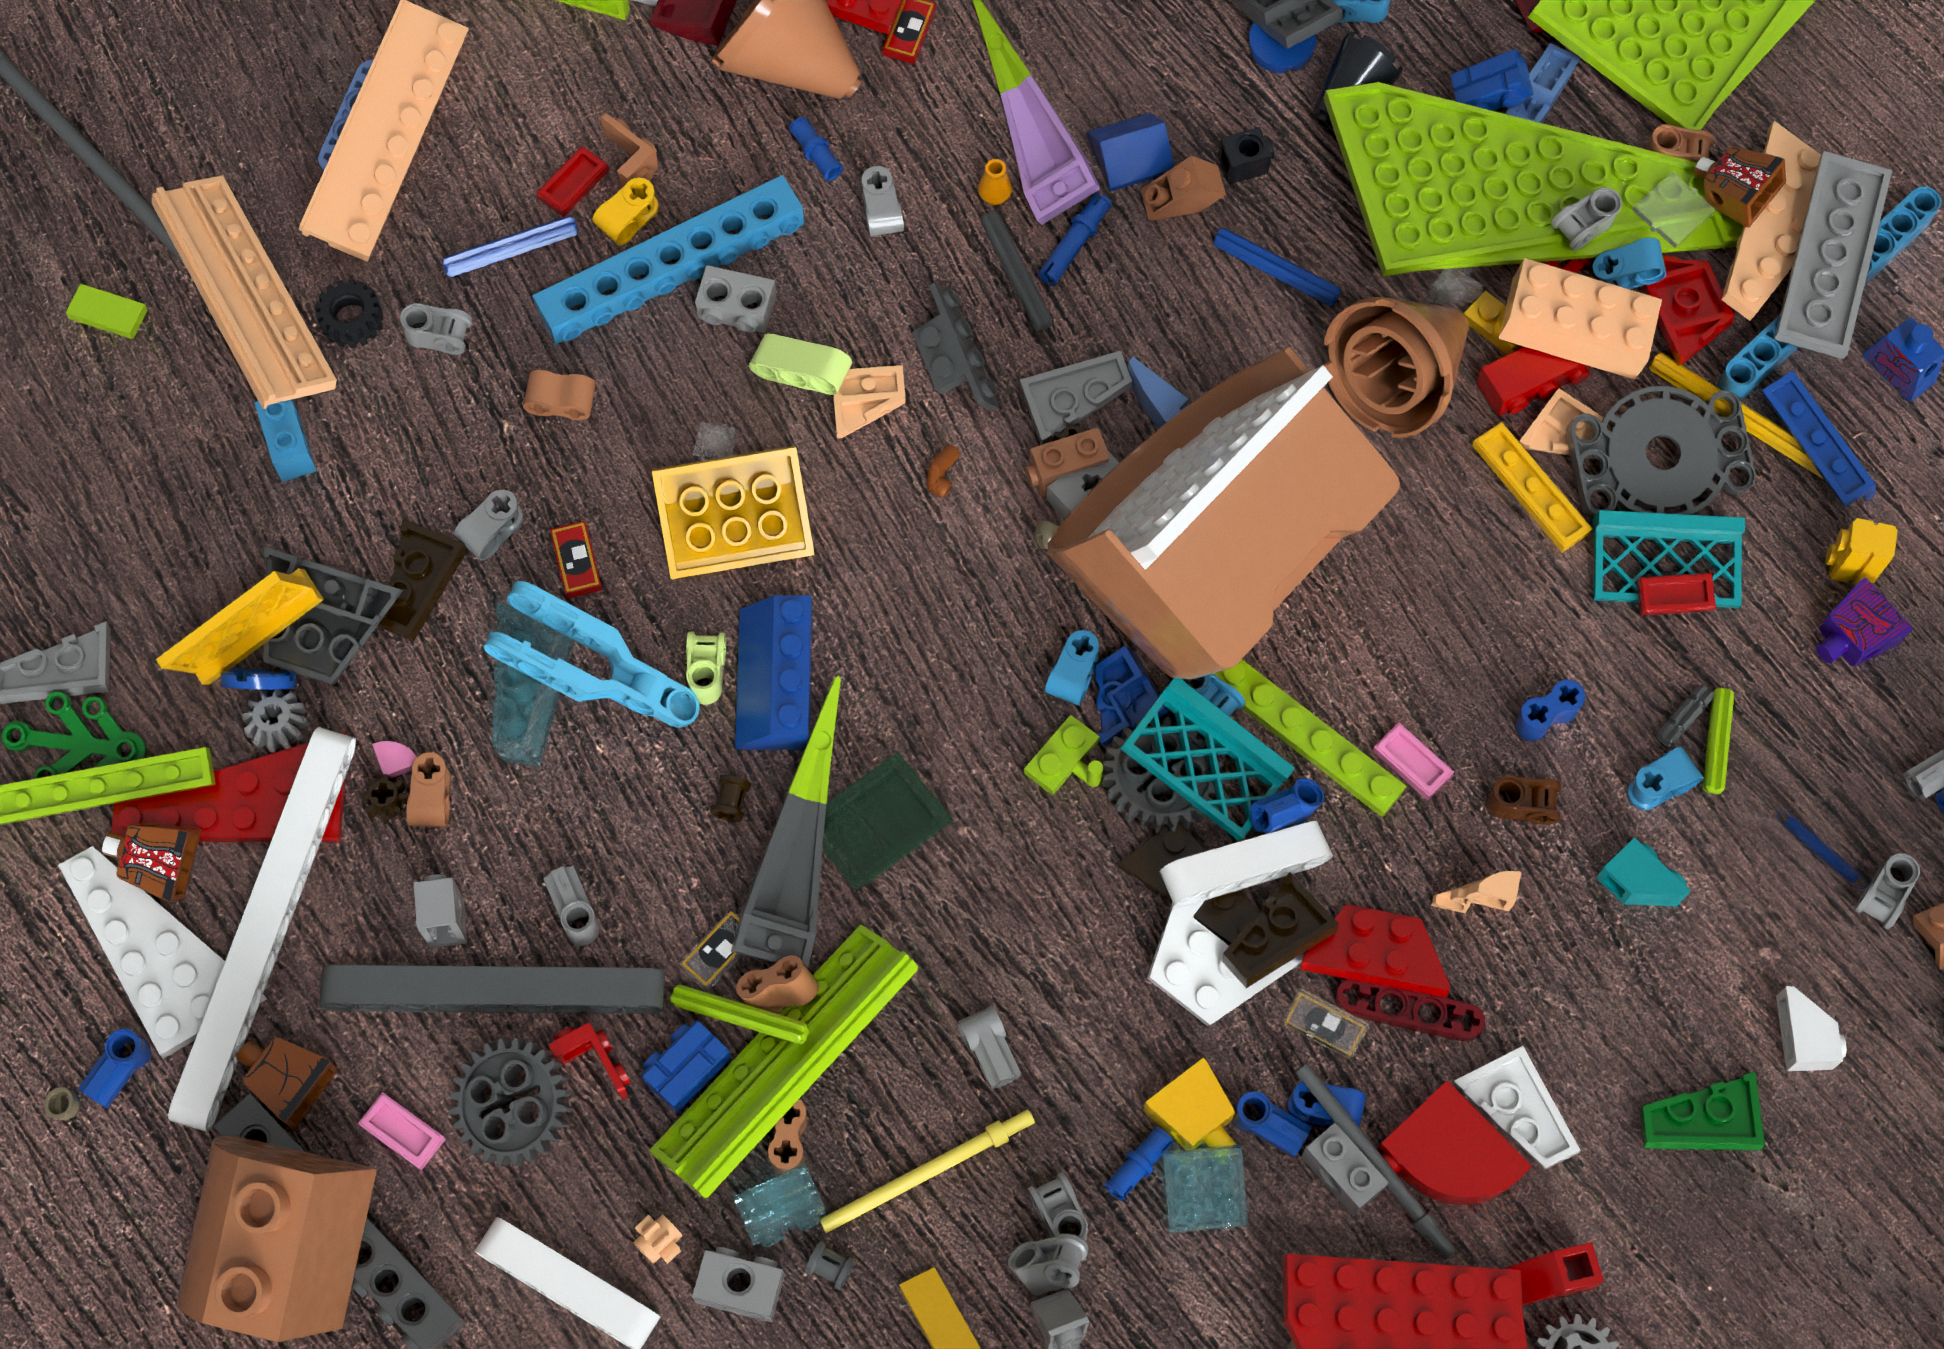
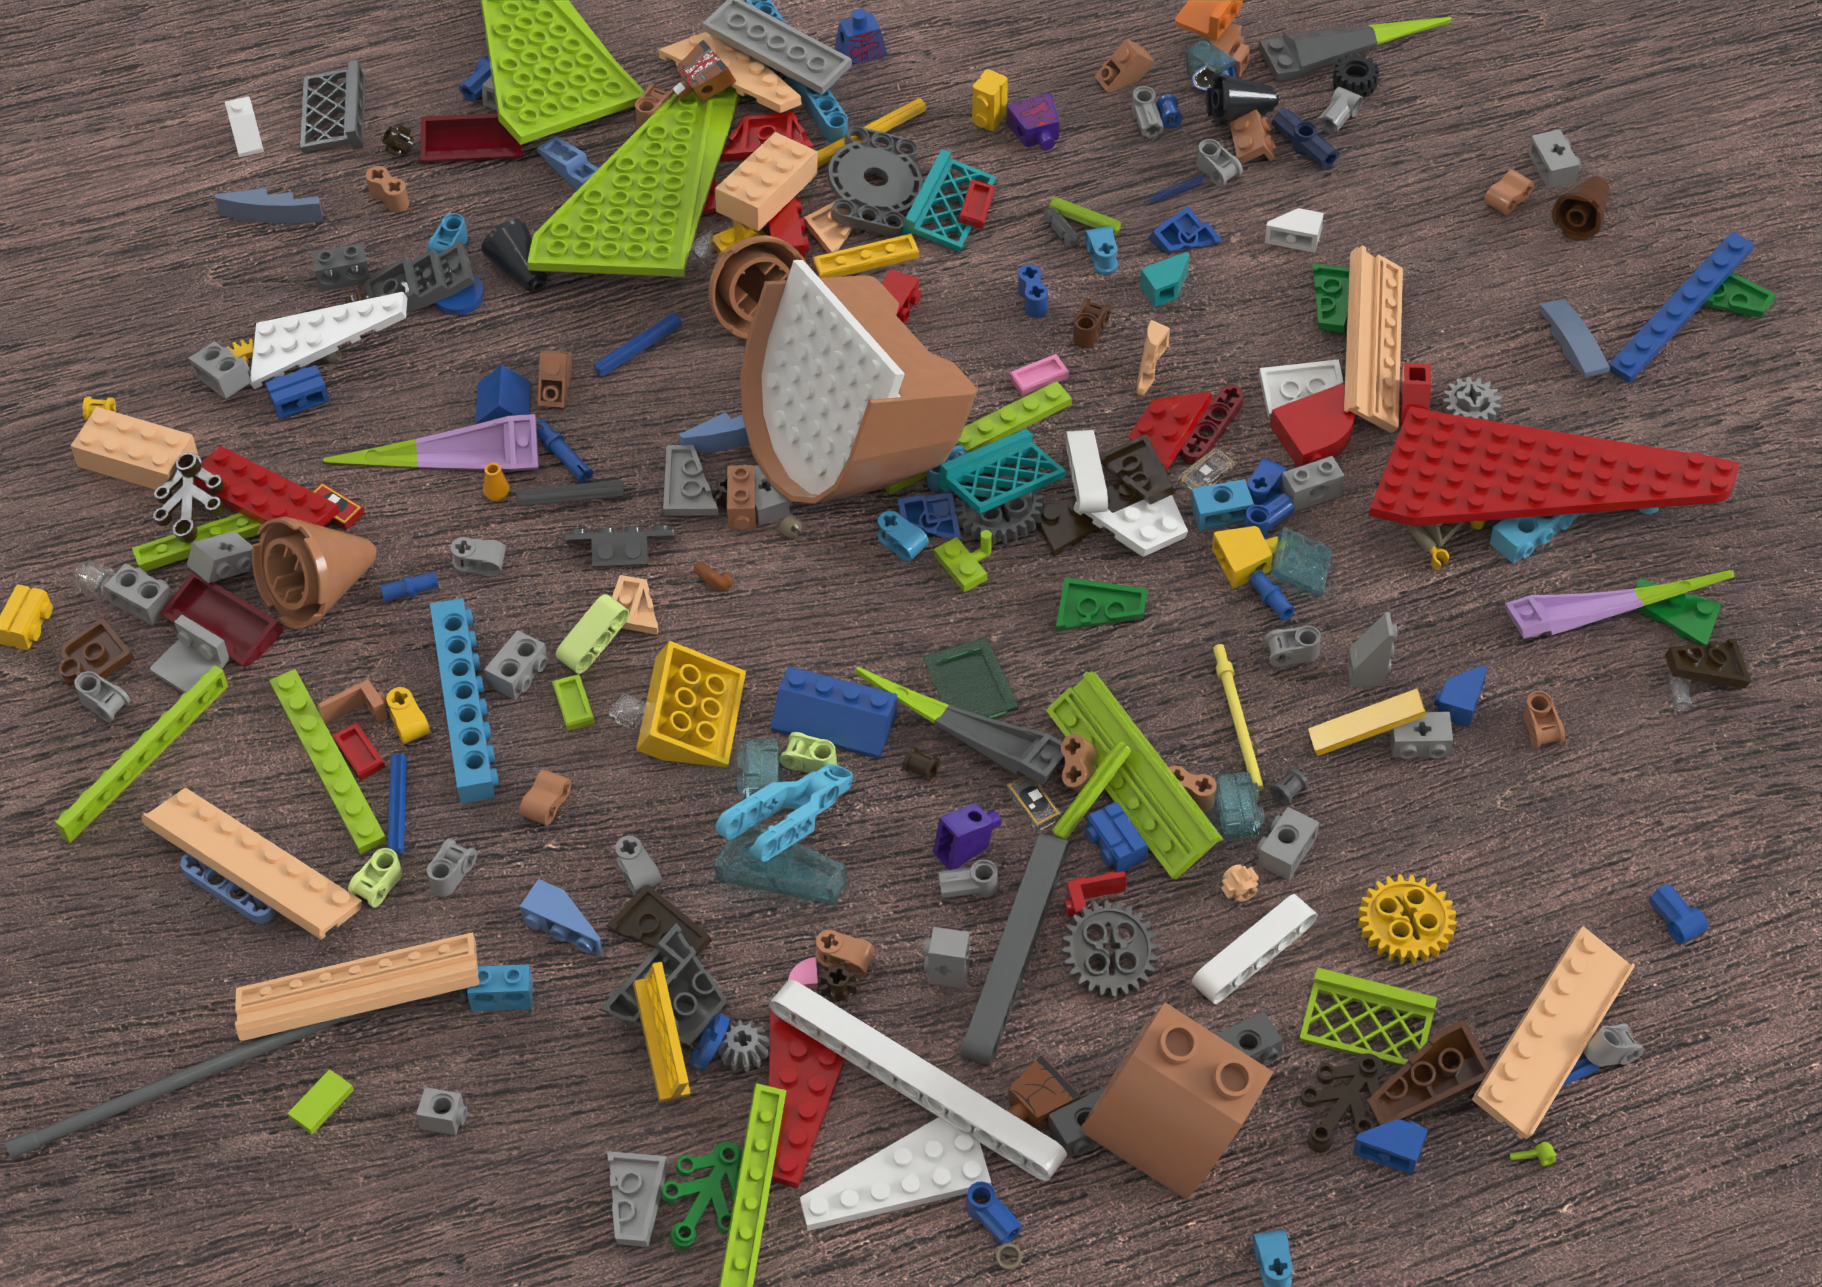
camera: 70 degrees left, 15 degrees down
(108, 421) = (435, 1101): none -> light grey brick
(155, 857) = (830, 1144): torso -> none
(343, 296) = (407, 909): black tyre -> none
(395, 259) = (373, 881): none -> yellowish green piece
(401, 1131) = (1104, 1034): bright pink tile -> none
(402, 462) = (555, 913): none -> medium blue slope
(548, 155) = (328, 761): none -> lime plate
(576, 559) = (686, 821): tile -> none
(622, 869) = (964, 835): none -> dark purple torso
(663, 615) = (759, 765): none -> clear light blue brick
(709, 380) = (573, 702): none -> lime tile
(986, 1037) = (1154, 657): light grey piece -> none
(1049, 1263) = (1329, 655): light grey piece -> none
(1050, 941) = (1098, 603): none -> green wing
(1240, 167) = (542, 334): black brick -> none
(1262, 1033) = (1220, 504): none -> dark azure brick
(1287, 807) = (1052, 441): blue piece -> none
(1423, 1220) = (1357, 455): dark grey bar -> none
(1462, 543) = (904, 290): none -> red slope
(1494, 82) = (559, 180): blue brick -> none
(1584, 220) = (694, 153): light grey piece -> none
(1632, 264) = (733, 148): dark azure piece -> none
(1639, 1190) = (1374, 339): none -> light nougat plate
(1673, 209) = (701, 117): clear piece -> none
(1741, 880) = (1183, 233): none -> blue slope
(1819, 440) = (899, 98): blue fence -> none

